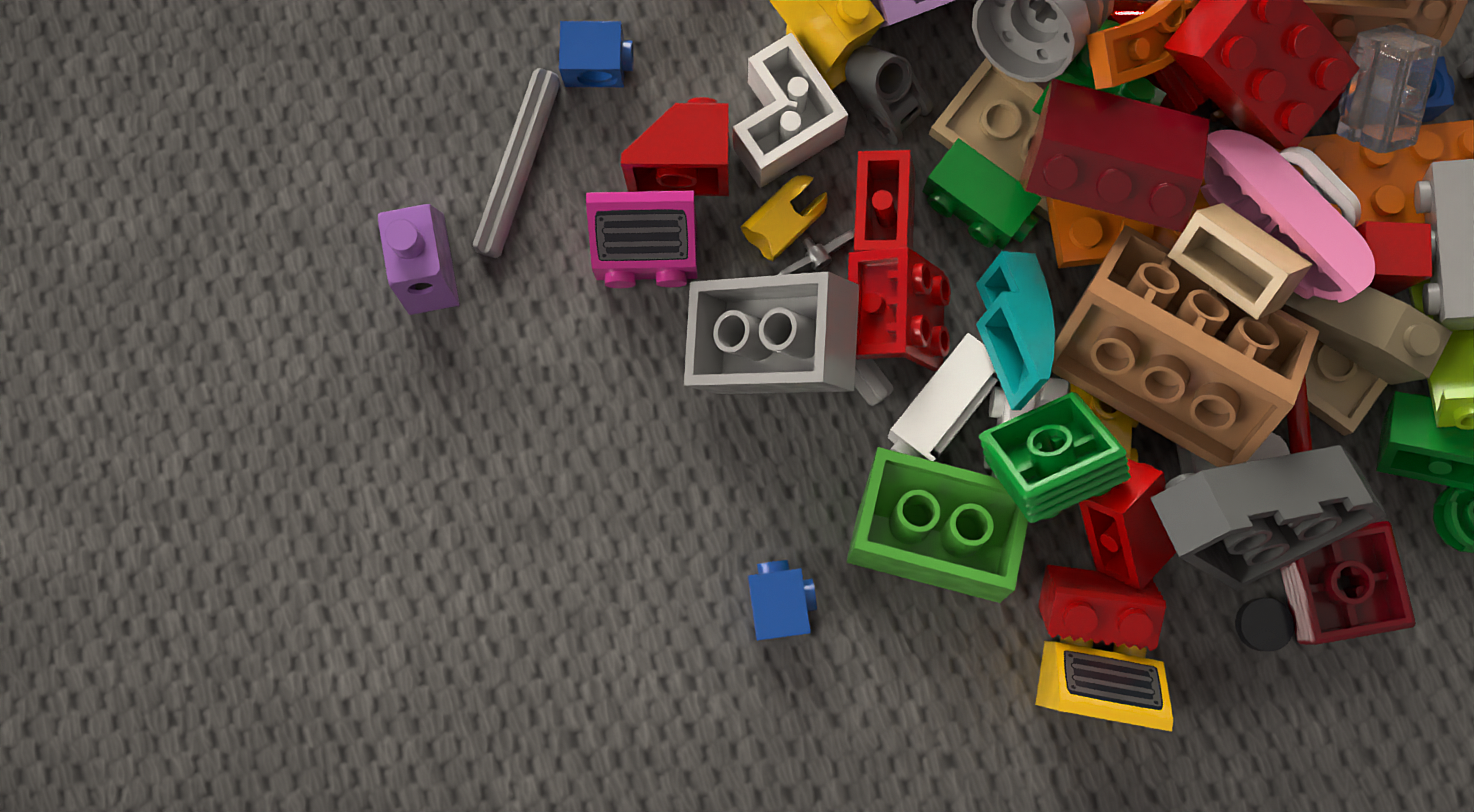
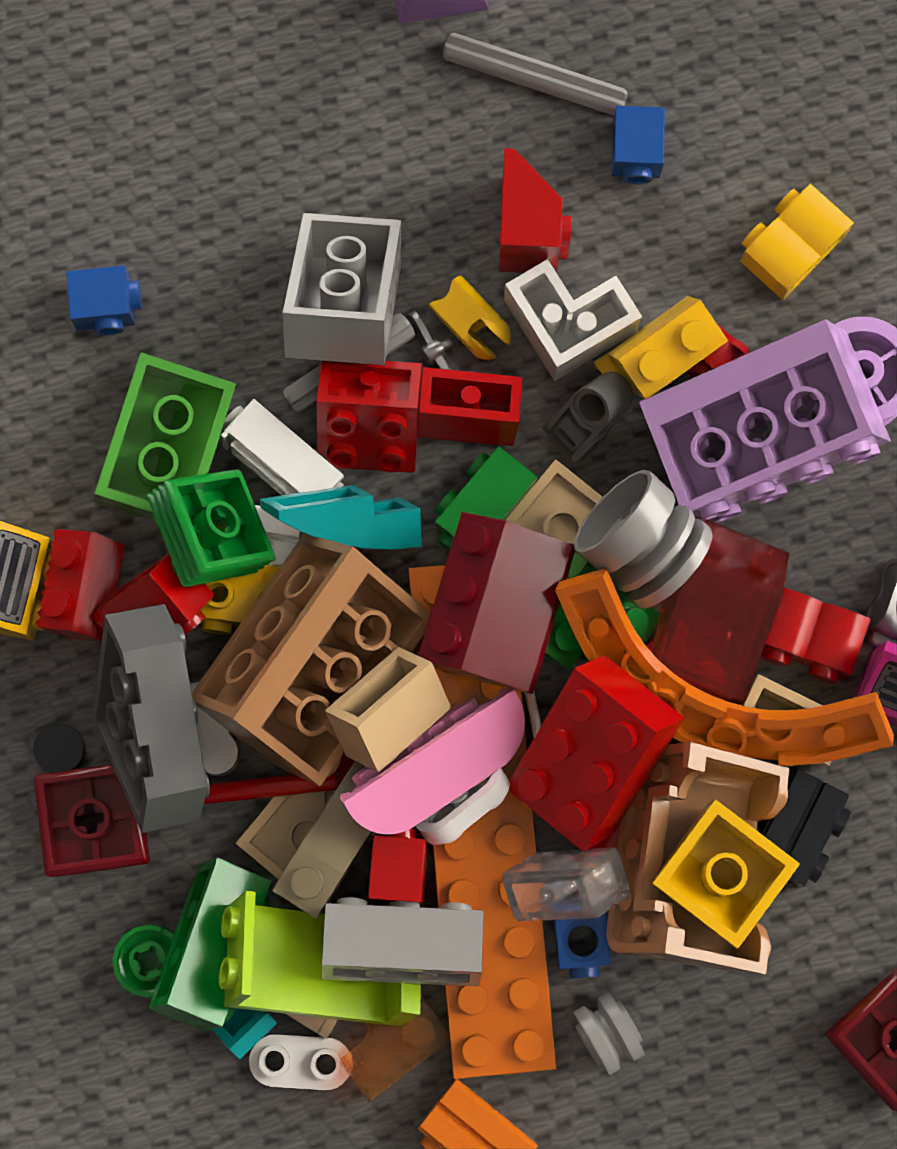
camera: 90 degrees right, 0 degrees up
(642, 237) = (446, 182): slope -> none

